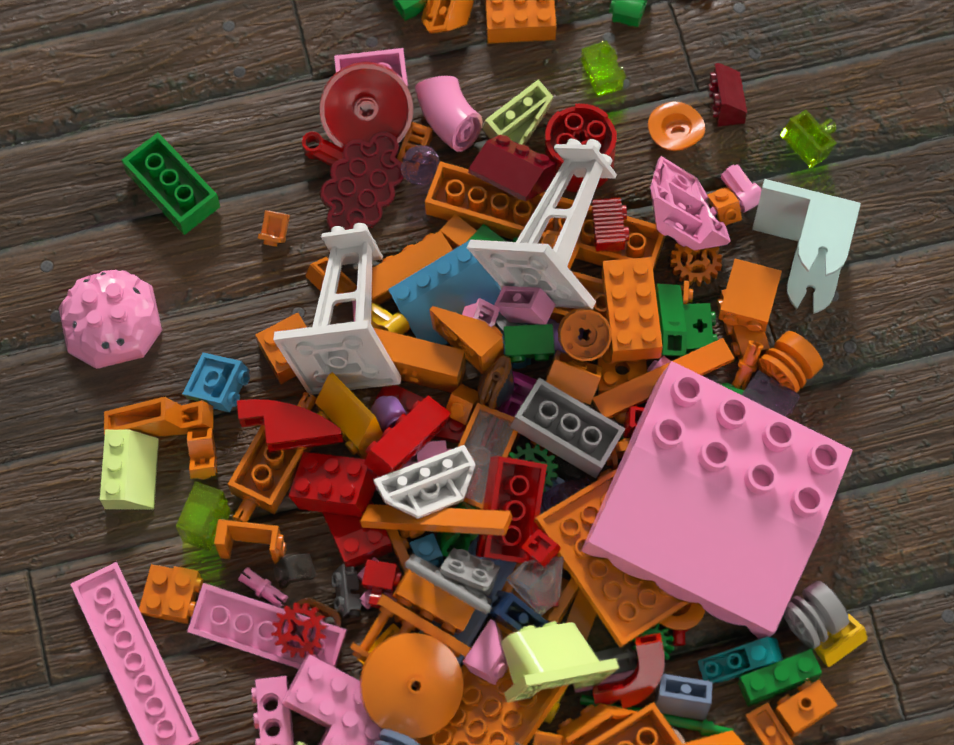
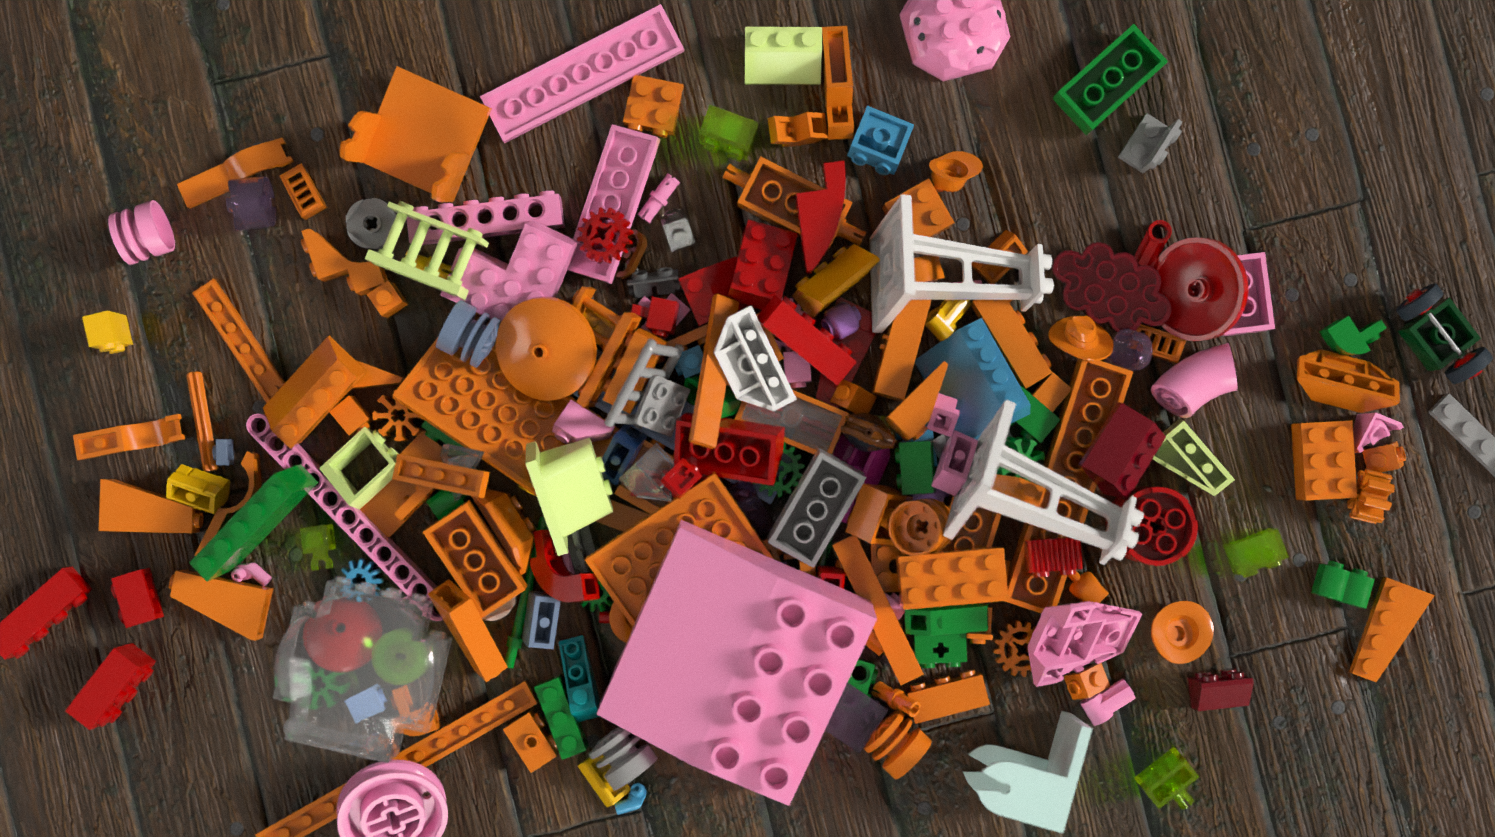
camera: 80 degrees right, 20 degrees up
(228, 531) = (705, 157): orange panel -> none
(231, 150) = (1148, 143): none -> light grey bracket
(248, 315) = (953, 170): none -> orange piece
(274, 228) = (1058, 194): orange bracket -> none
(408, 207) = (1081, 338): none -> orange hat
(639, 205) = (1087, 588): none -> orange piece
(749, 295) = (971, 705): orange brick -> none
(859, 610) = (634, 800): none -> dark azure arm

